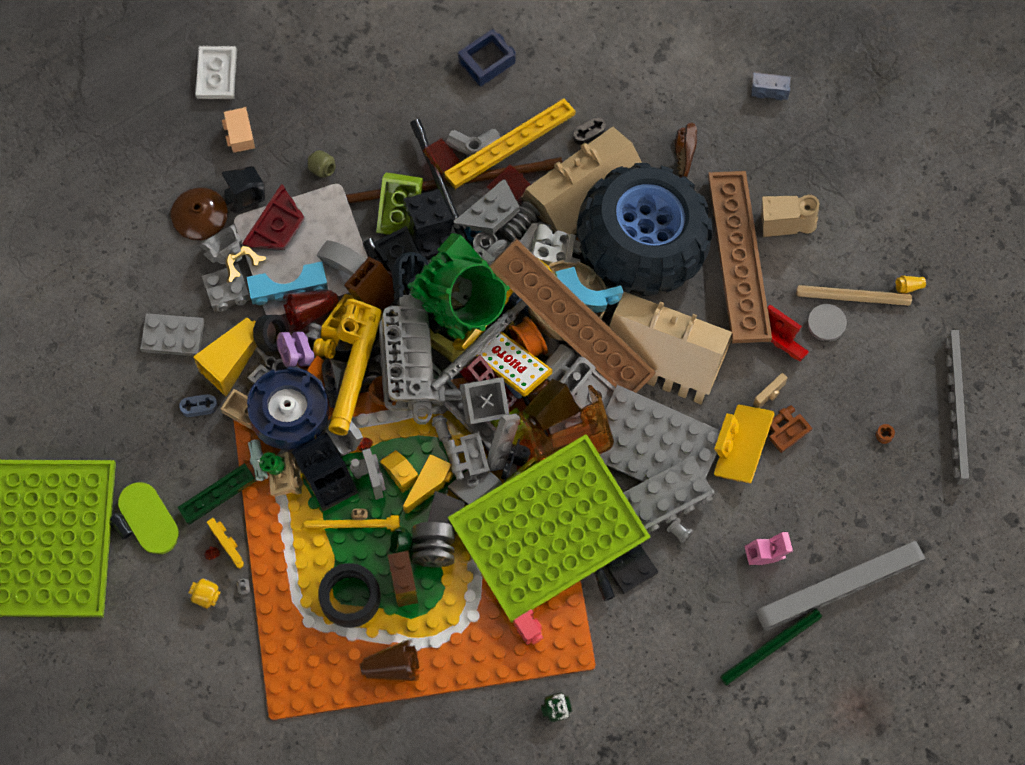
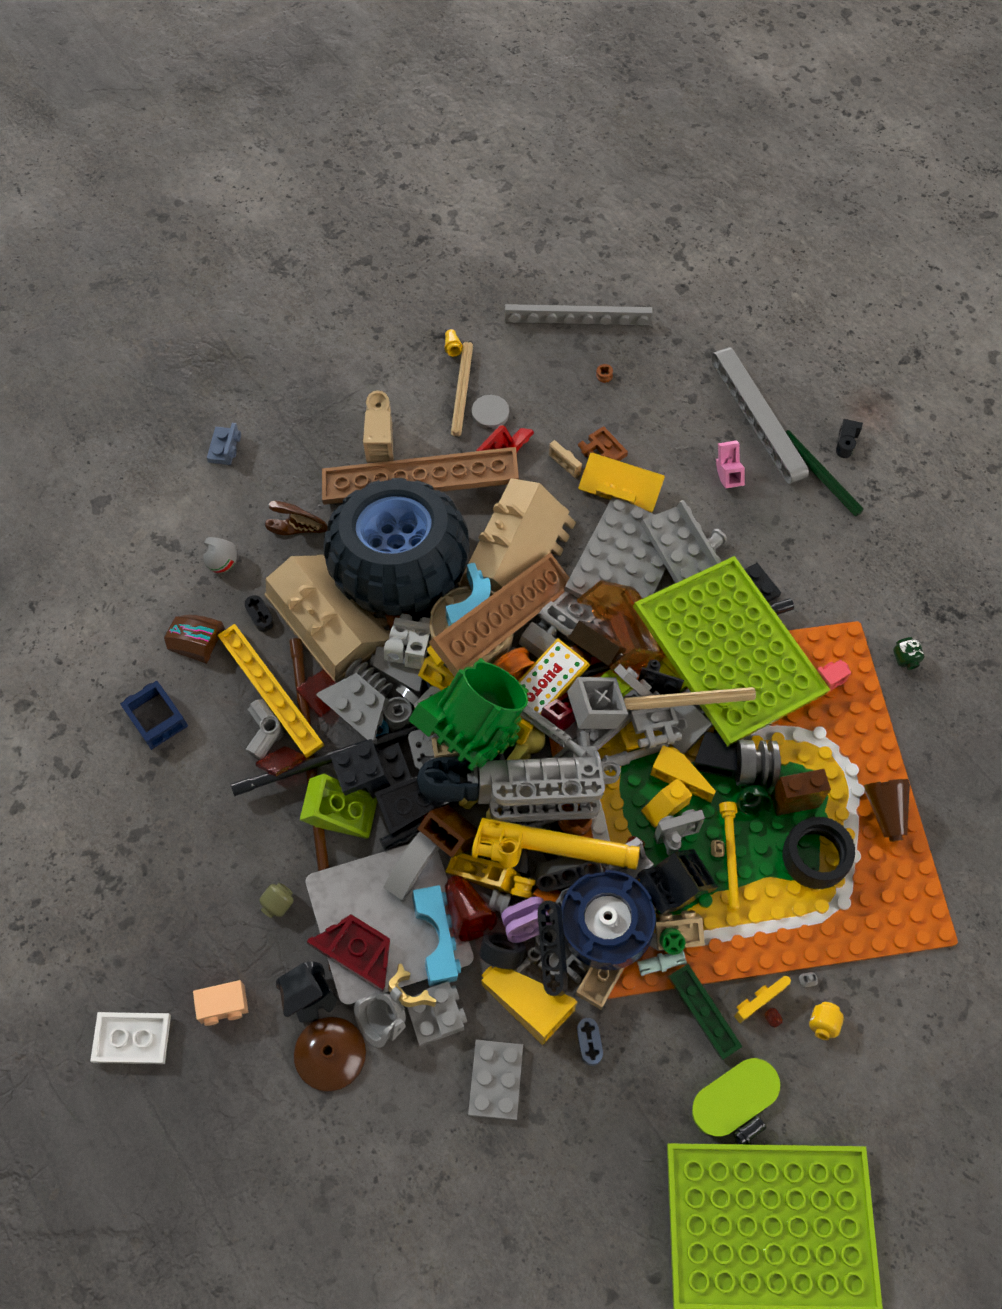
camera: 90 degrees left, 5 degrees down
(234, 363) = (556, 947): none -> black beam
(488, 480) = (690, 698): none -> tan axle
(564, 81) = (193, 636): none -> reddish brown slope
(644, 92) = (220, 555): none -> light grey helmet
(815, 675) = (846, 442): none -> black leg

